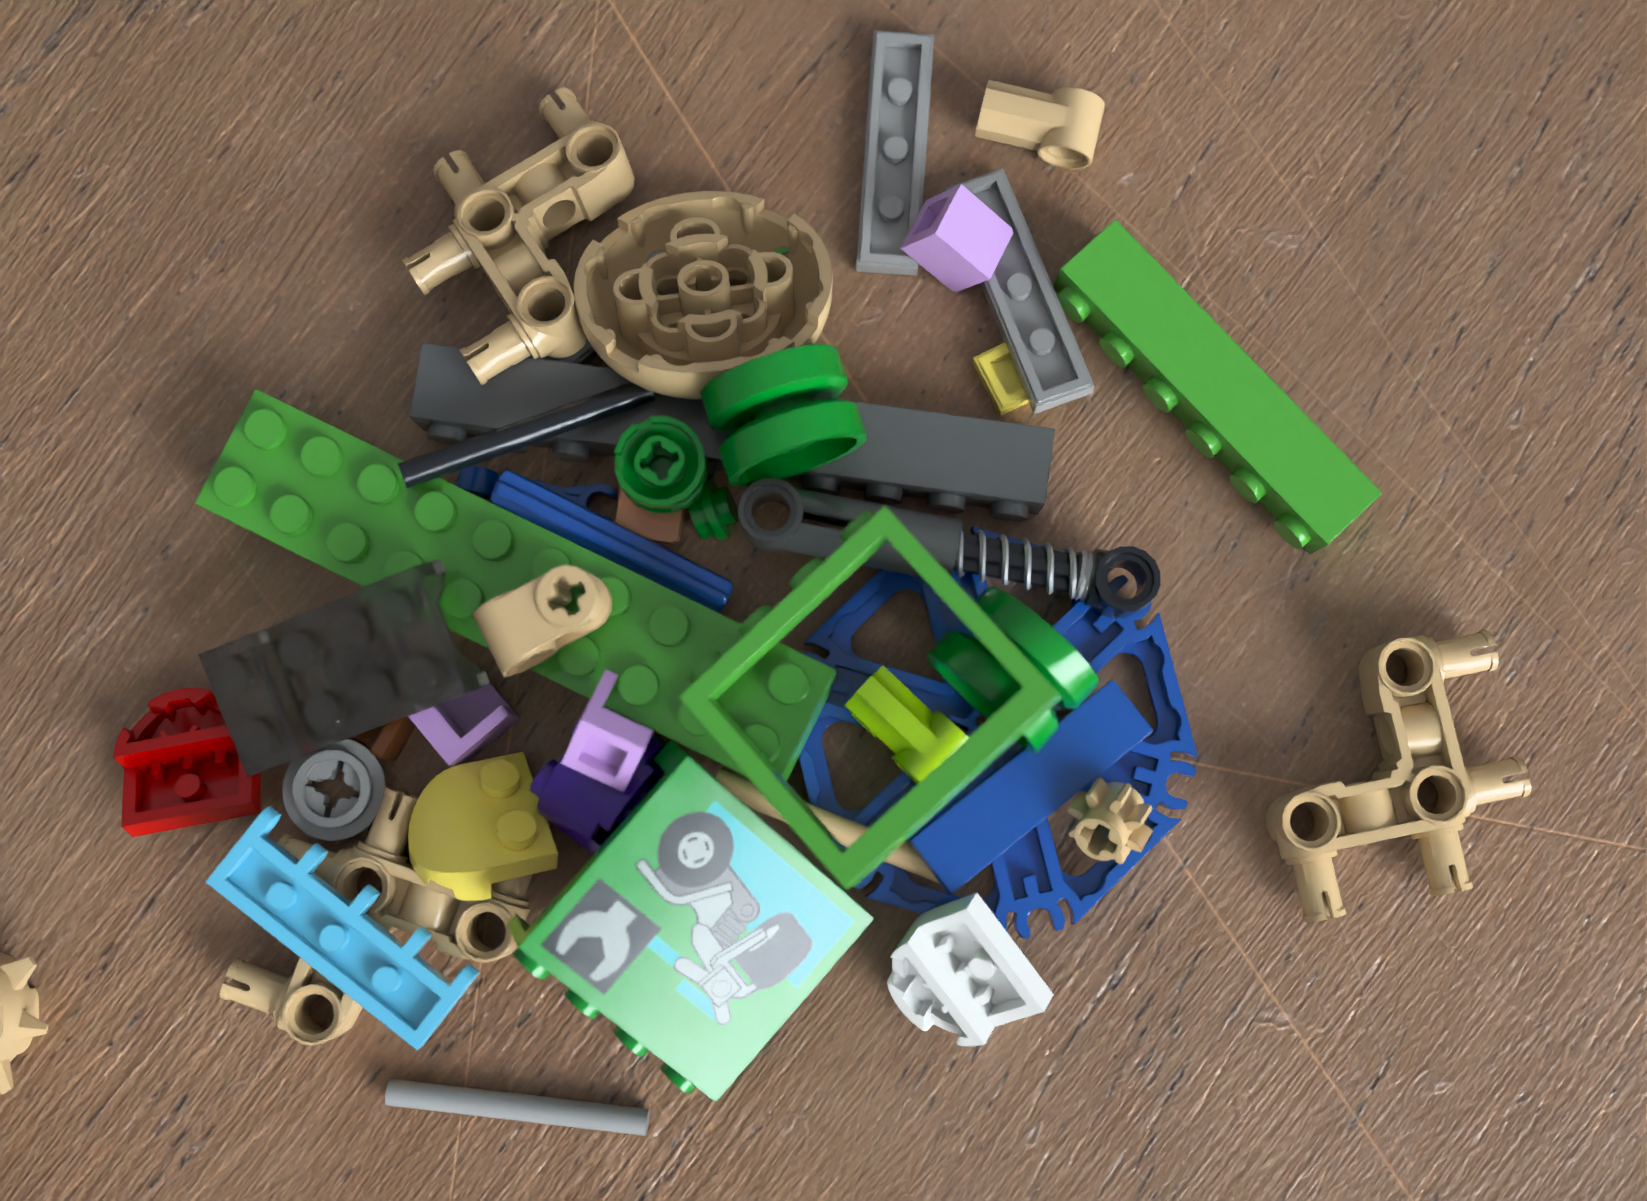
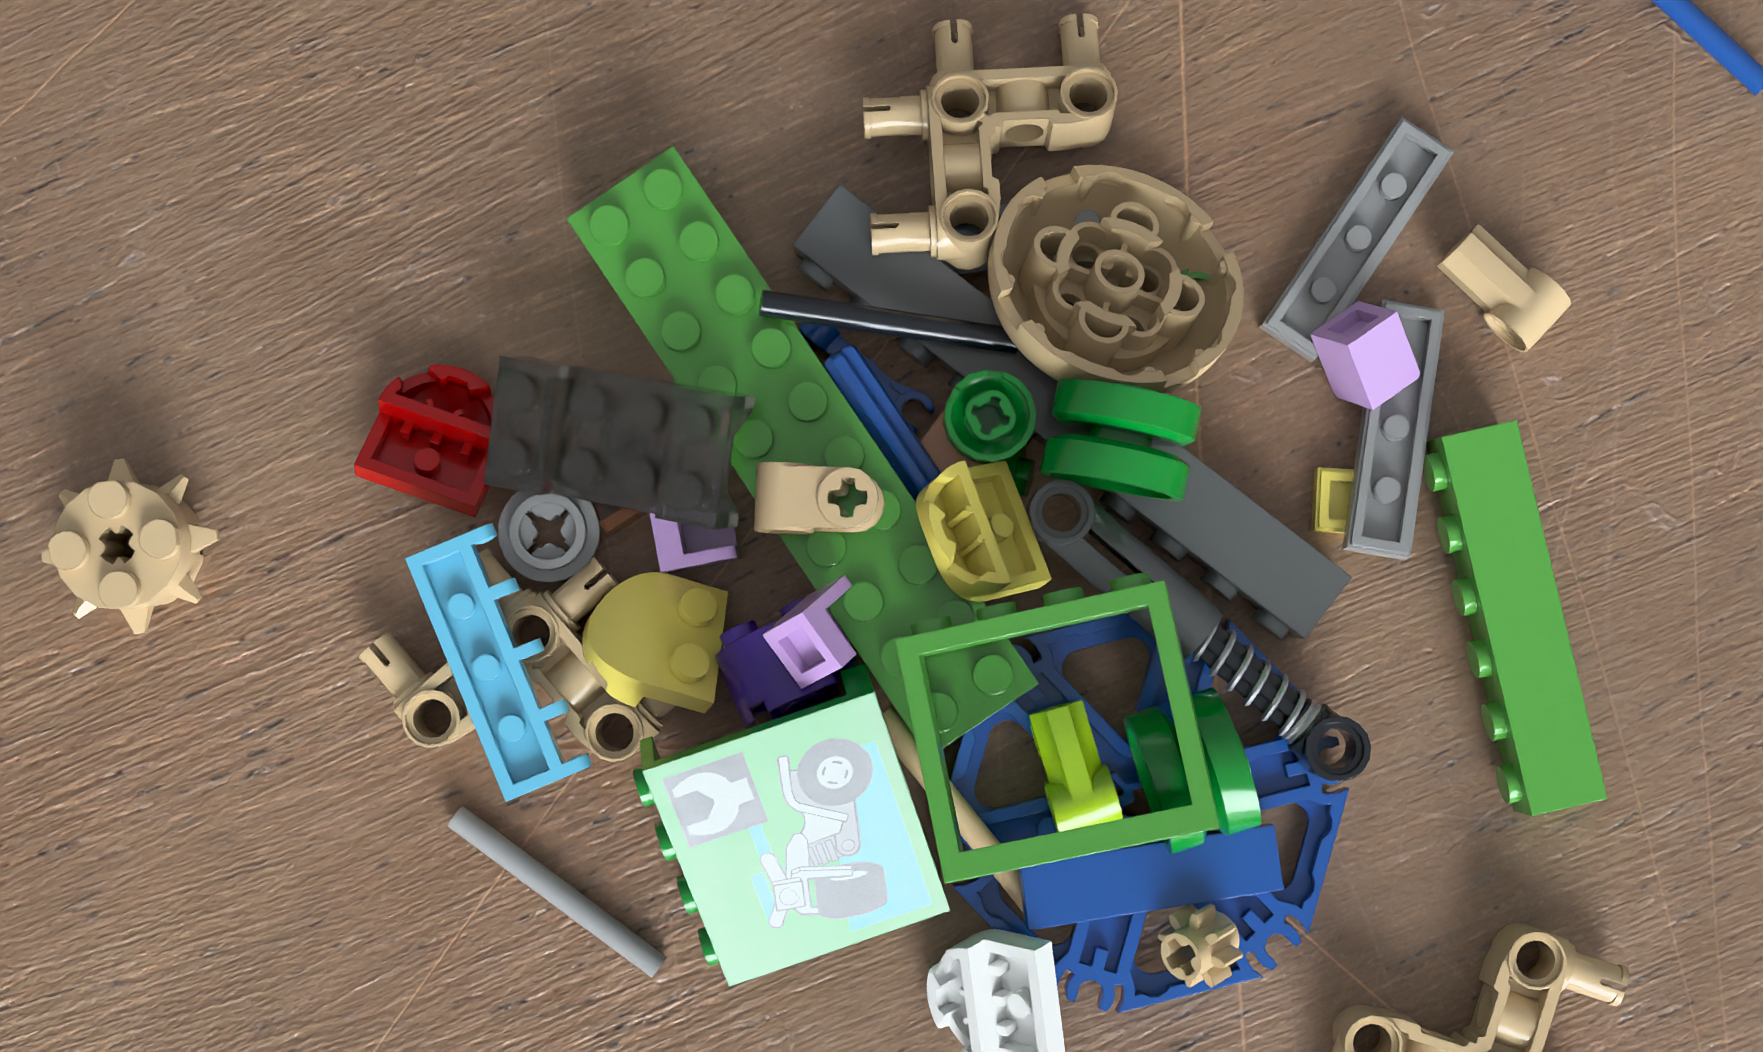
camera: 30 degrees right, 5 degrees up
(708, 566) = (980, 532): none -> light yellow slope

